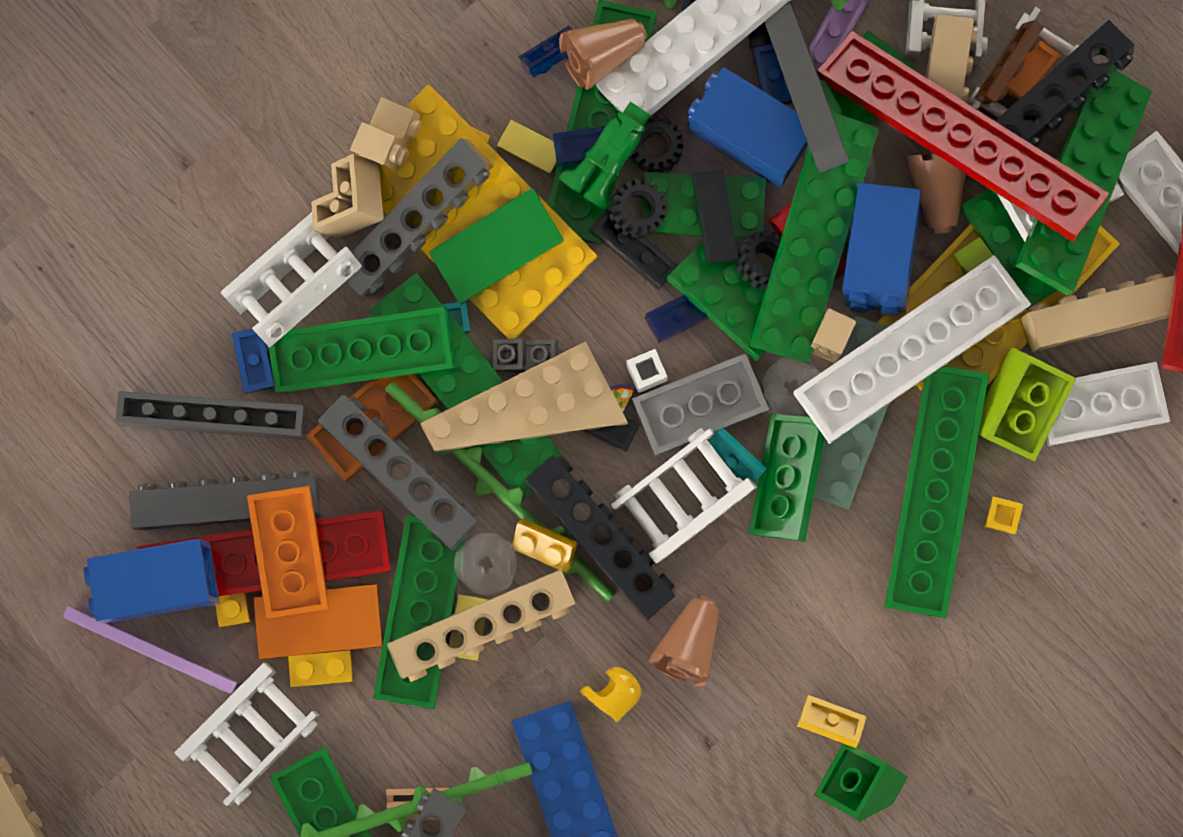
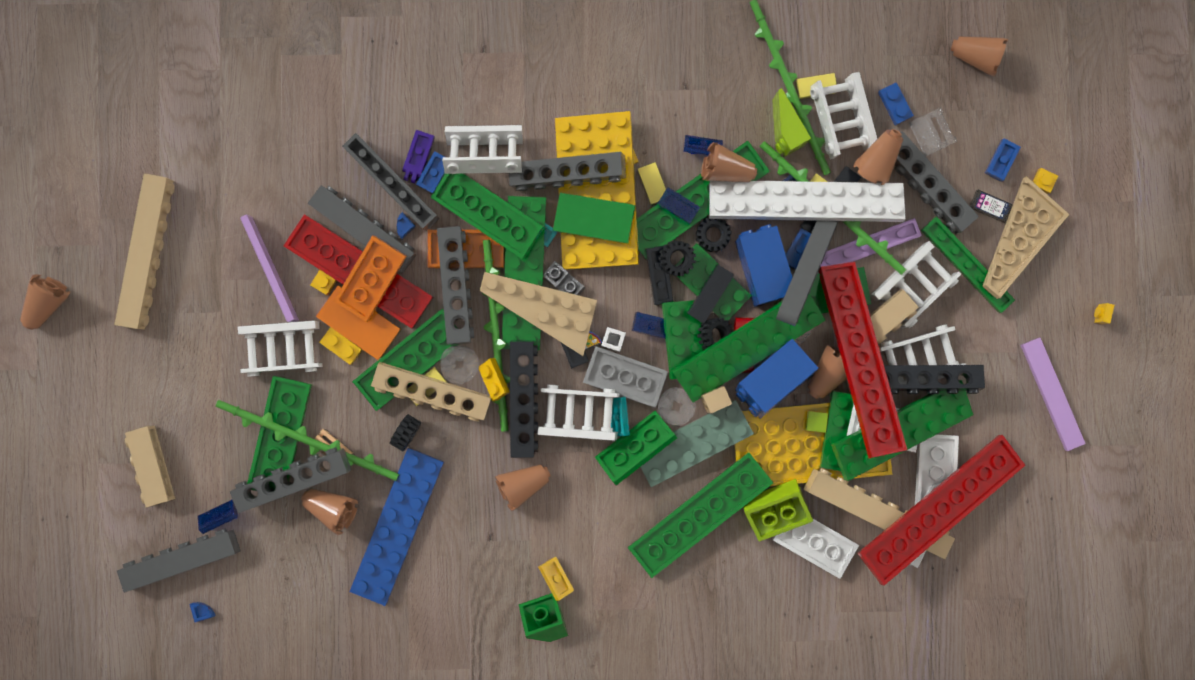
camera: 30 degrees right, 5 degrees up
(151, 581) = (293, 238): blue brick -> none
(215, 356) = (417, 155): none -> dark purple hinge
(272, 455) = (404, 226): none -> blue tile
(354, 199) = (546, 136): tan brick -> none
(387, 134) = (587, 119): tan brick -> none
(493, 702) = (405, 432): none -> black tyre
(609, 154) = (685, 220): green piece -> none
(618, 695) = (465, 480): yellow helmet -> none
(911, 349) = (747, 439): white plate -> none
(1003, 515) = (721, 553): yellow plate -> none
(1010, 63) = (917, 343): reddish brown plate -> none
(1036, 66) = (924, 354): orange tile -> none

